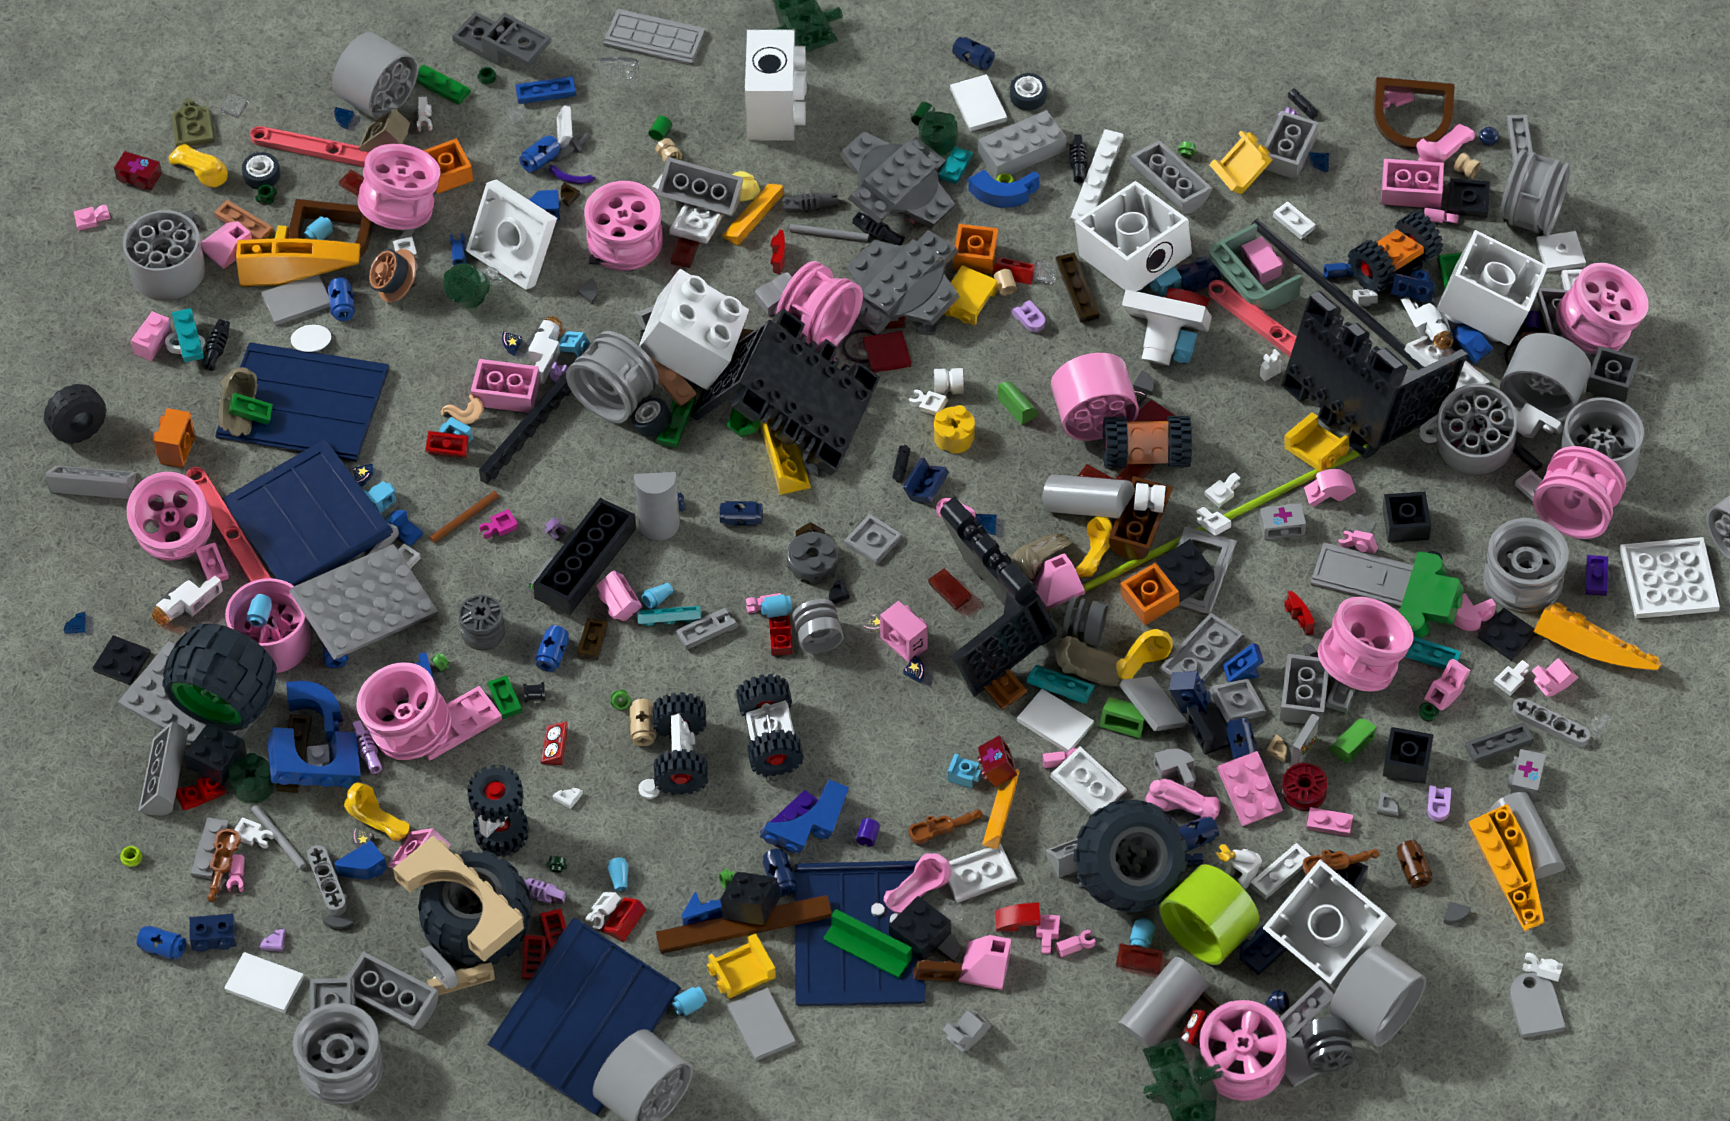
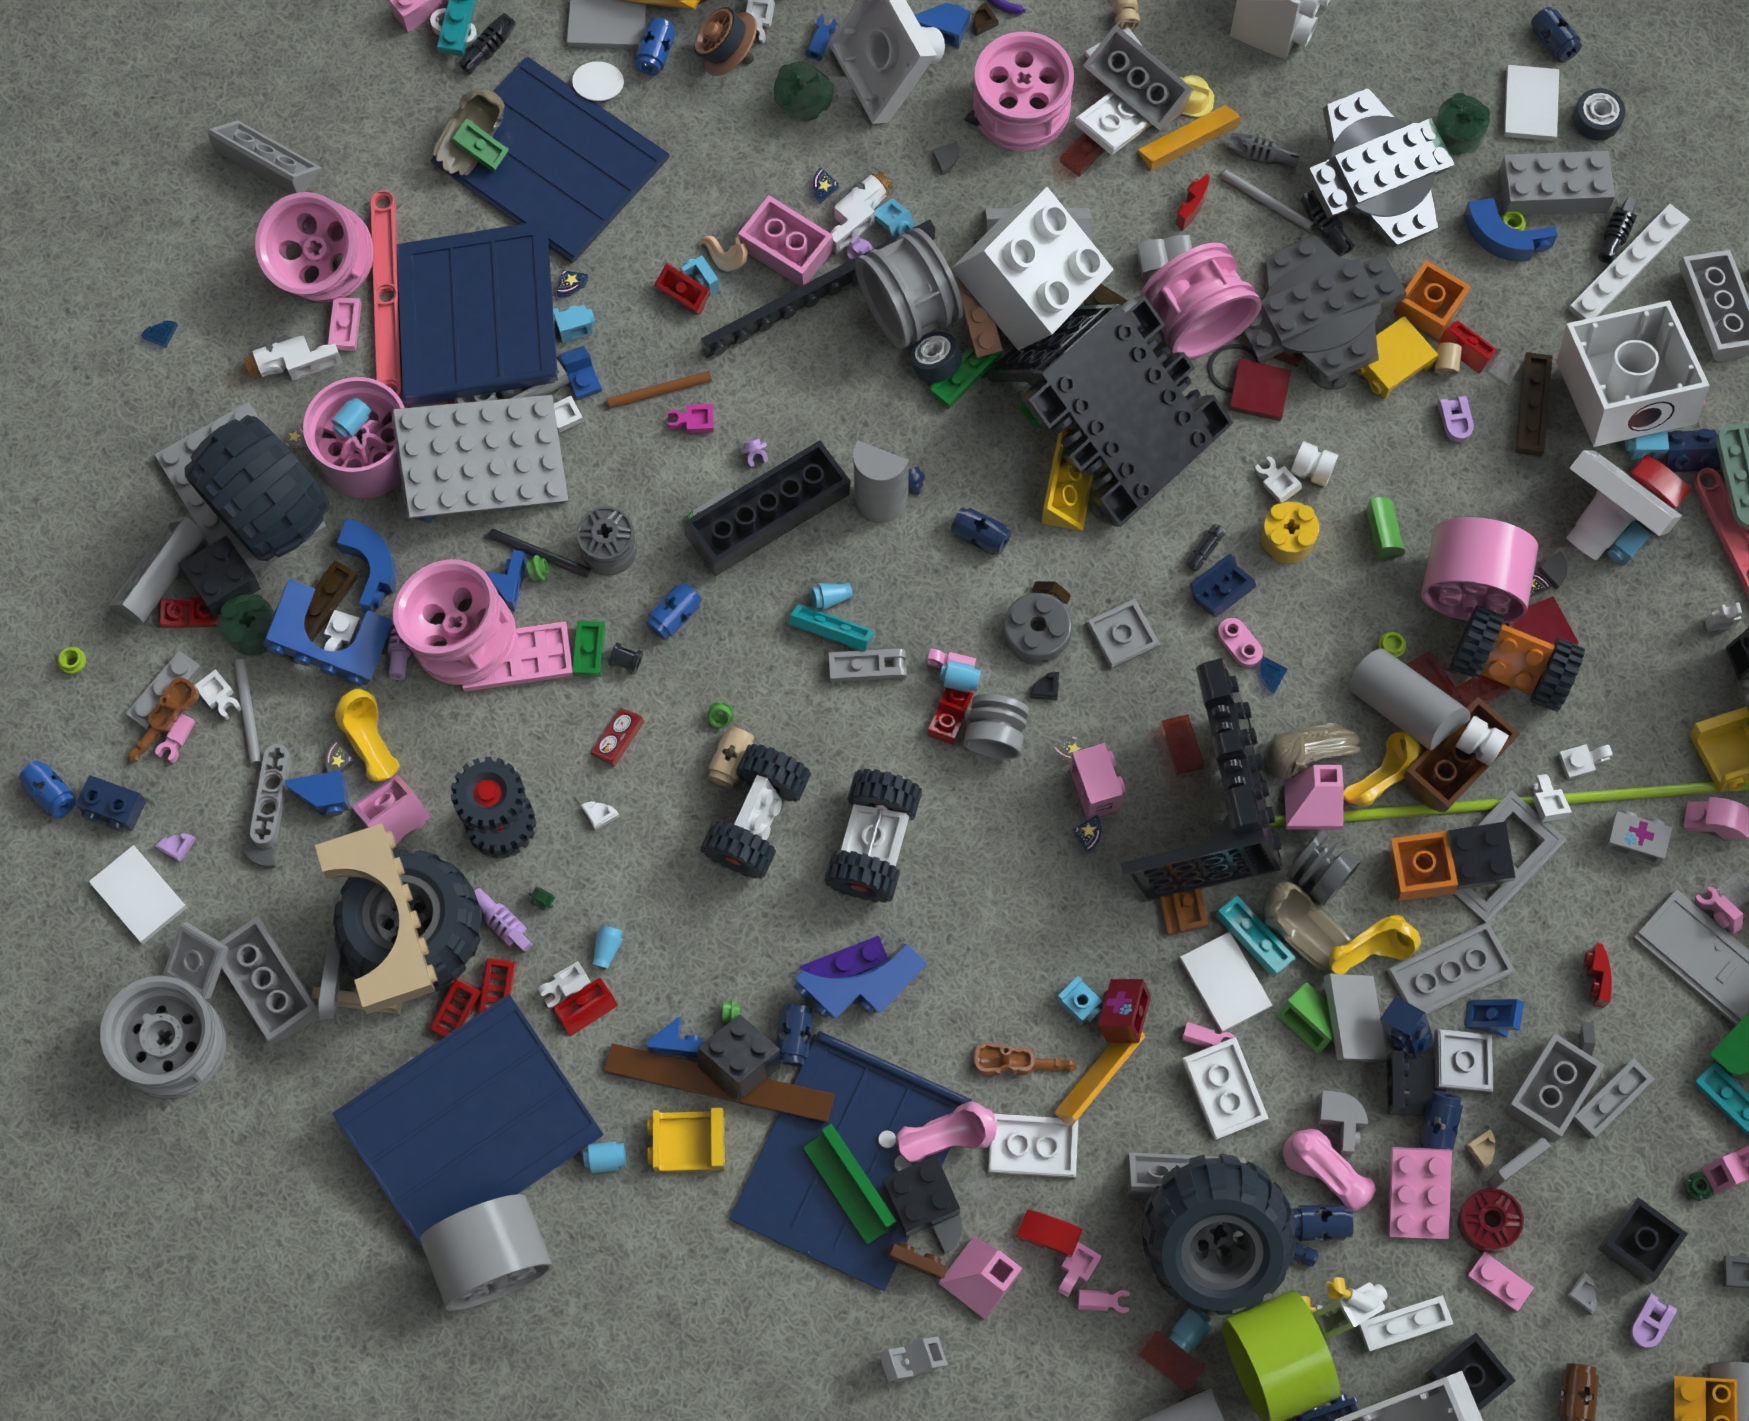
camera: 25 degrees right, 15 degrees up
(75, 413) = (279, 67): black tyre -> none
(121, 660) = (186, 402): black plate -> none
(174, 437) = (377, 145): orange brick -> none
(452, 652) = (533, 550): none -> black bar
(592, 639) = (727, 618): dark brown plate -> none
(618, 596) = (783, 577): bright pink brick -> none
(648, 789) = (692, 848): white plate -> none
(761, 1024) = (675, 1227): light grey tile -> none
(868, 832) = (925, 1029): dark purple beam -> none
(920, 111) = (1457, 85): dark green beam -> none
(955, 165) = (1463, 175): teal plate -> none
(1059, 468) = (1393, 643): none -> lime plate
(1338, 860) = (1451, 1353): dark orange piece -> none
(1353, 740) = (1583, 1182): bright green brick -> none
(1365, 644) = (1638, 1086): bright pink wheel -> none

